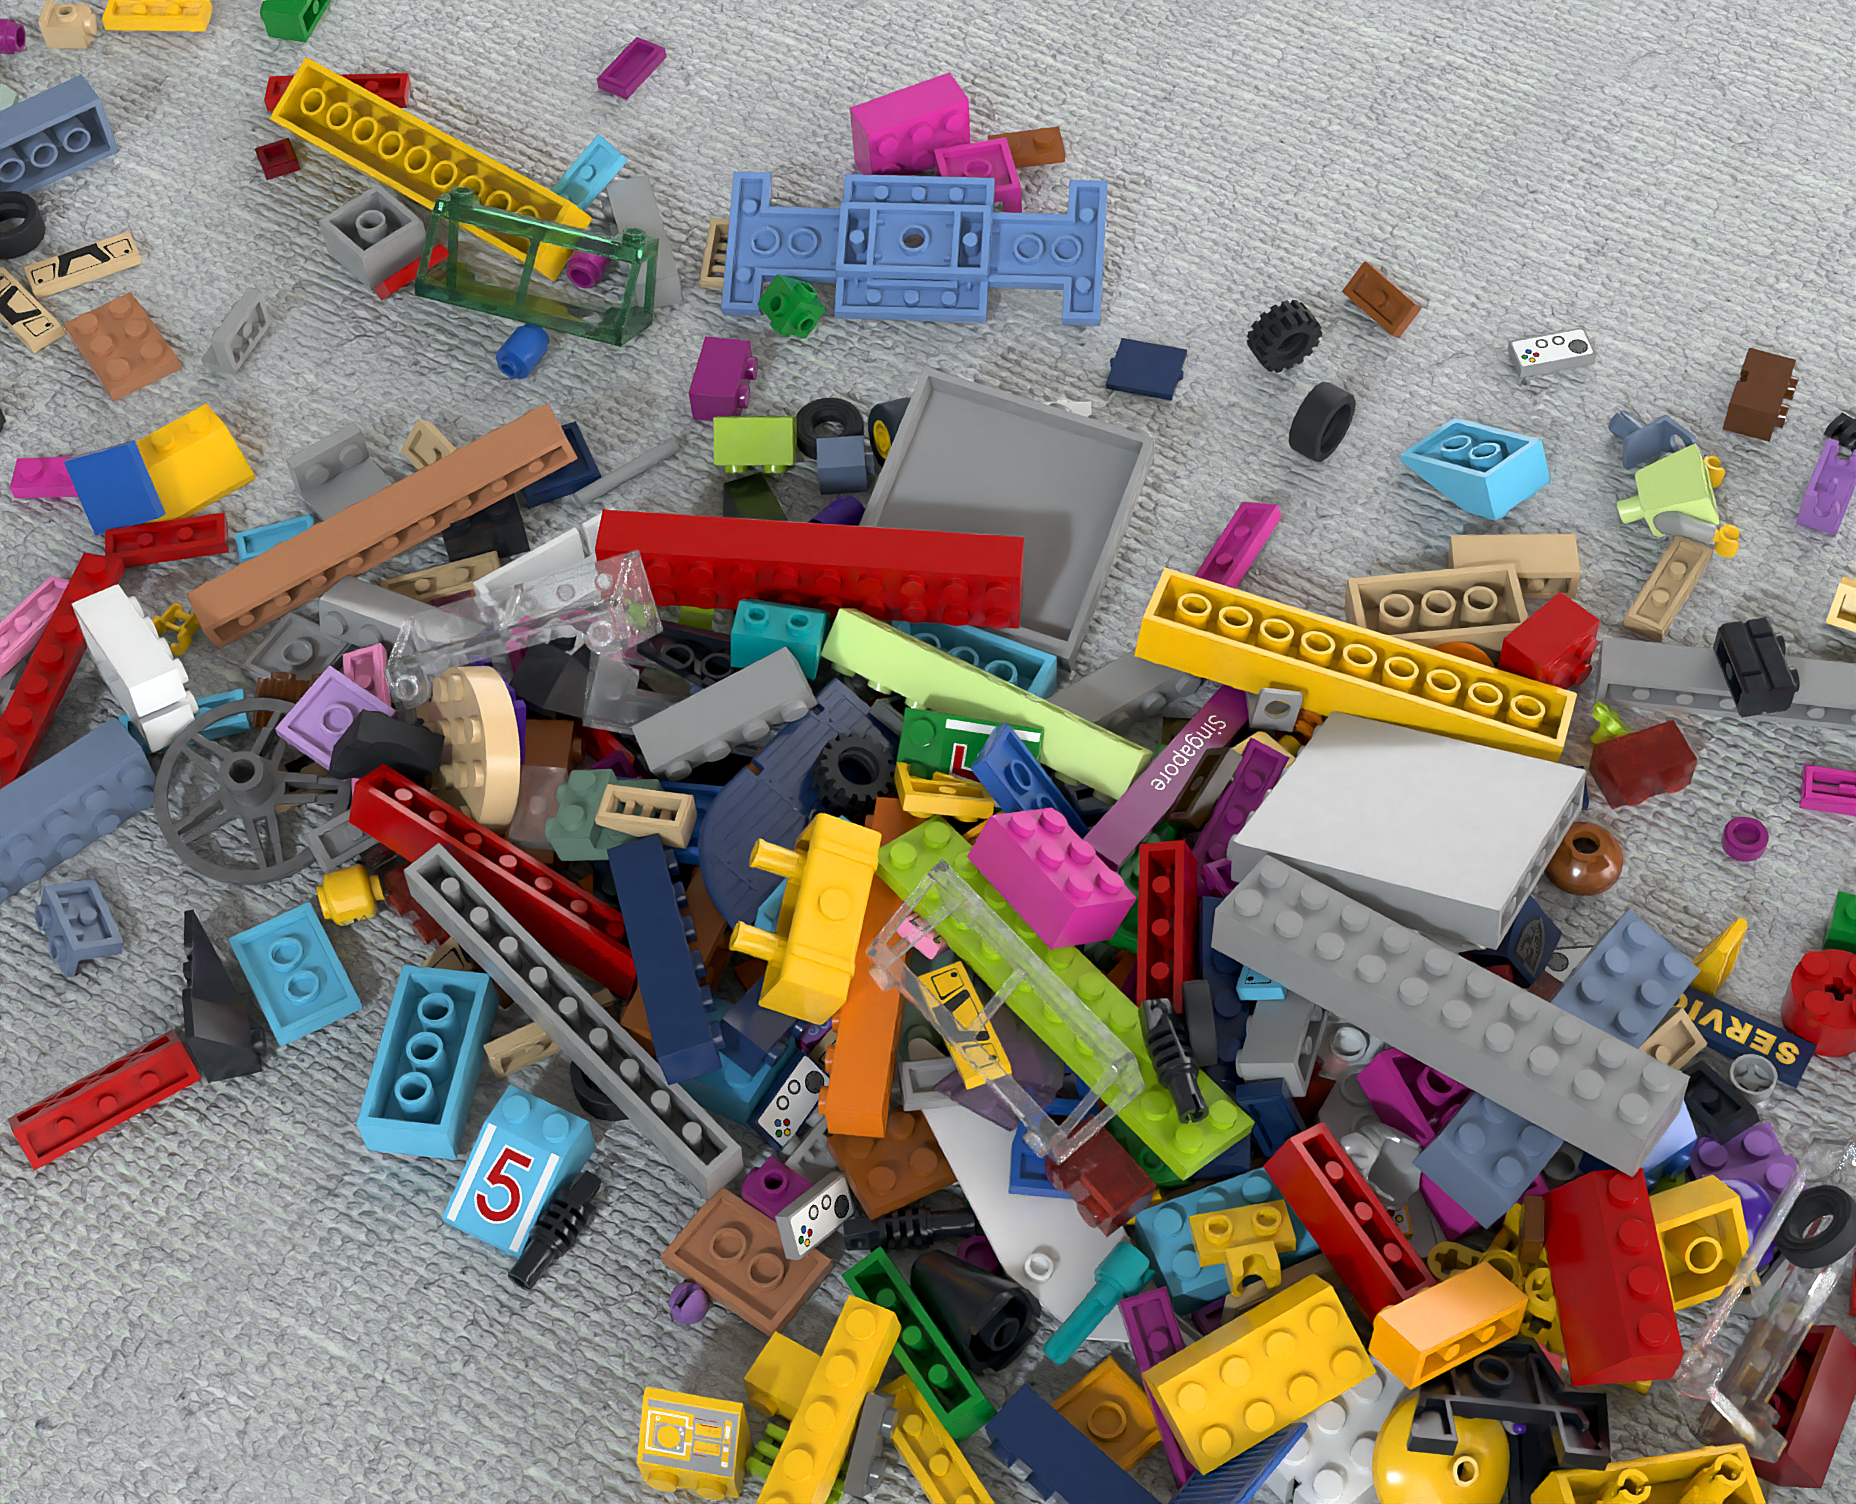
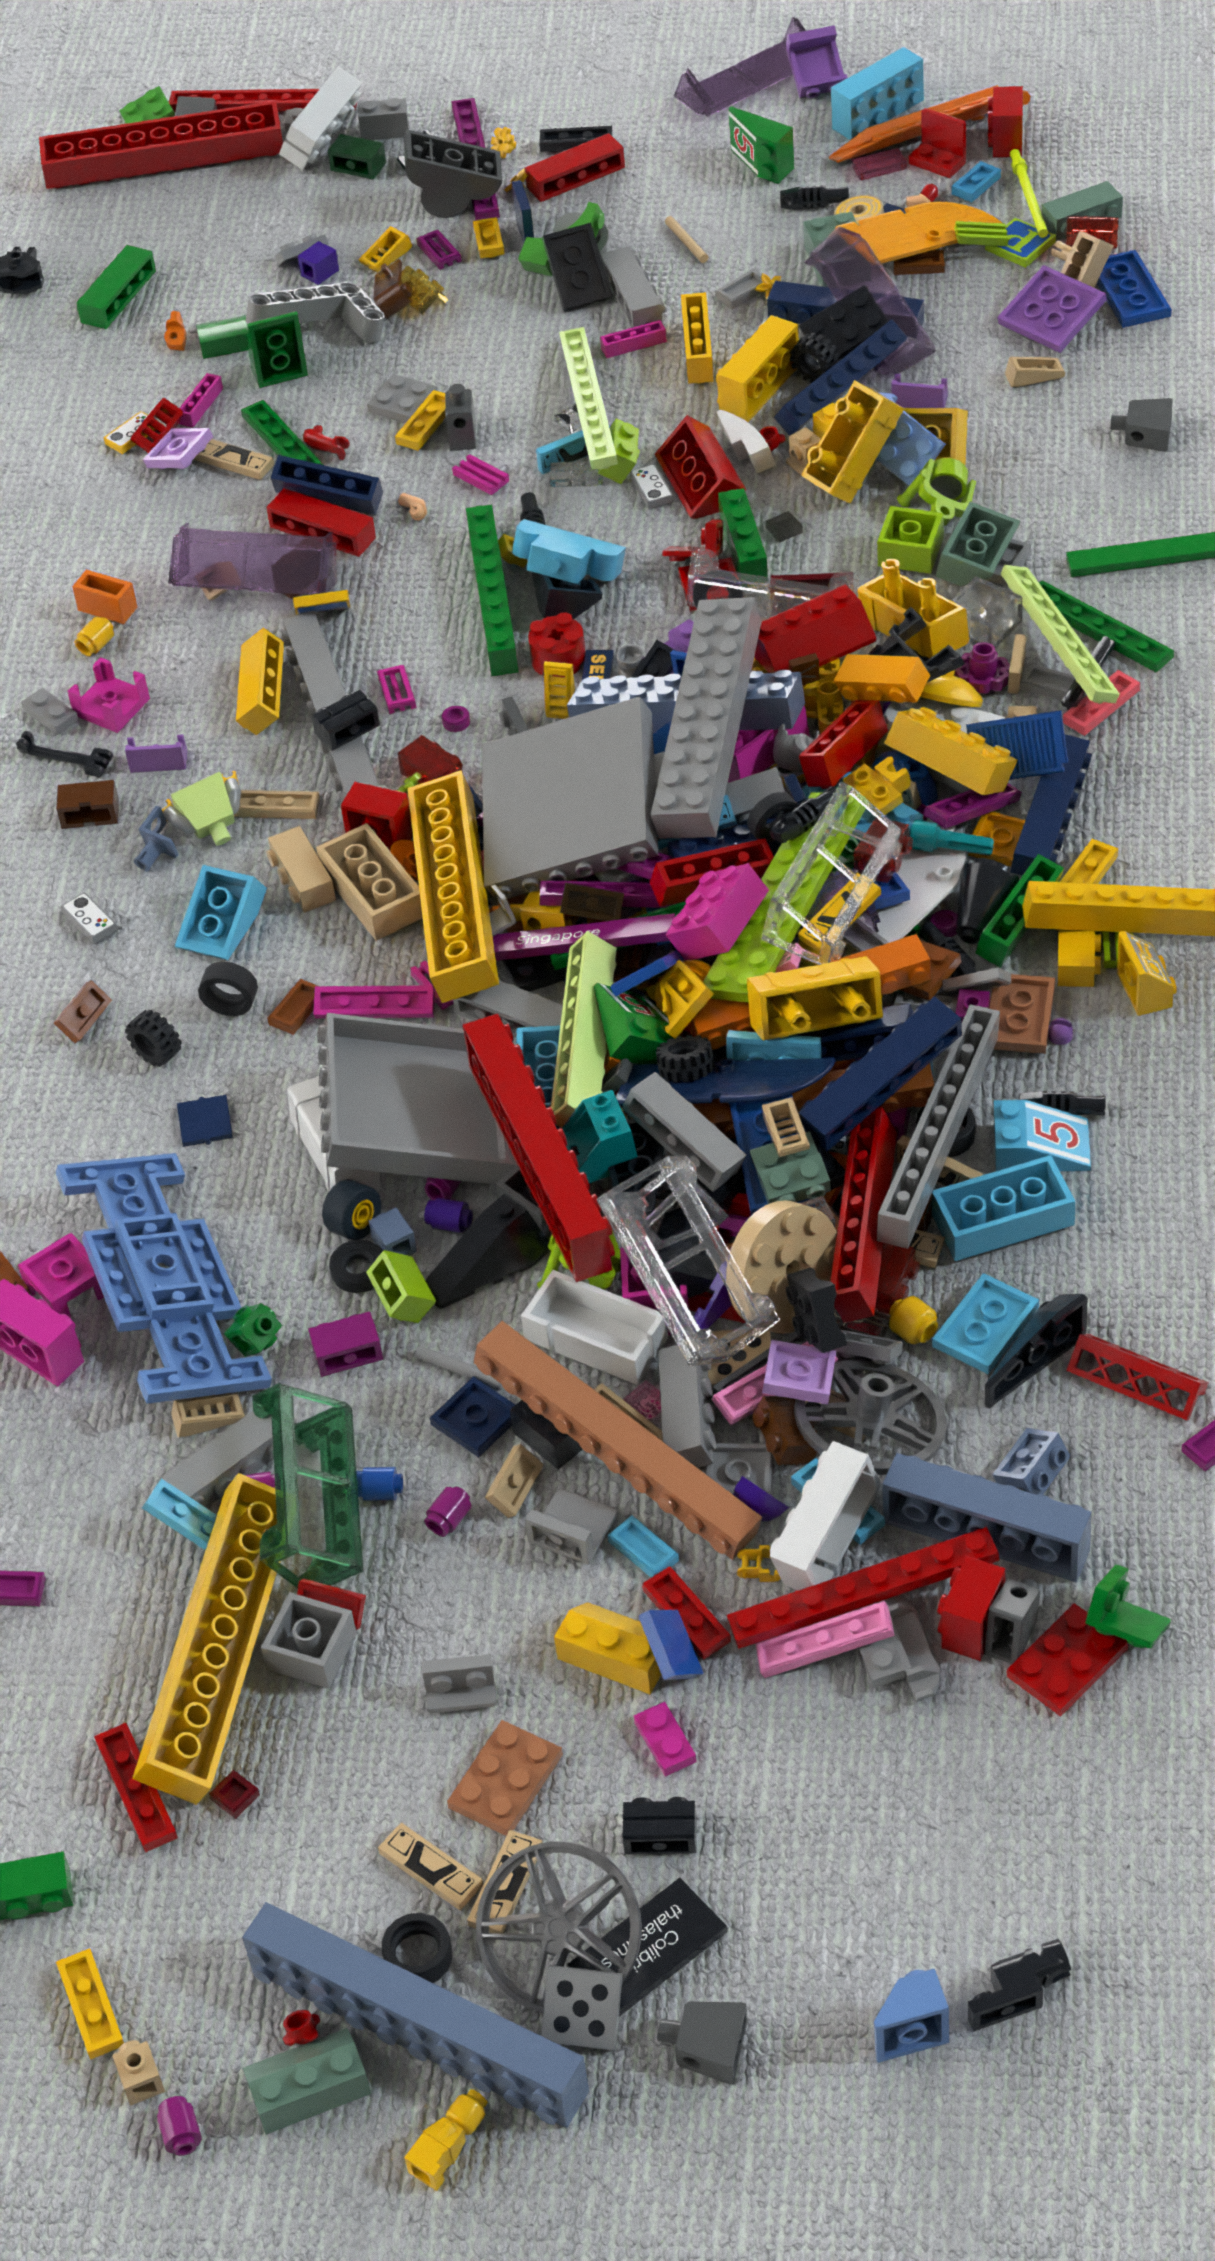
camera: 115 degrees left, 5 degrees down
(236, 644) = (759, 1500): none -> dark purple brick
(444, 394) = (447, 1511): none -> magenta brick
(1270, 487) = (294, 1008): none -> dark orange tile
(1679, 892) = (511, 717): none -> dark grey plate

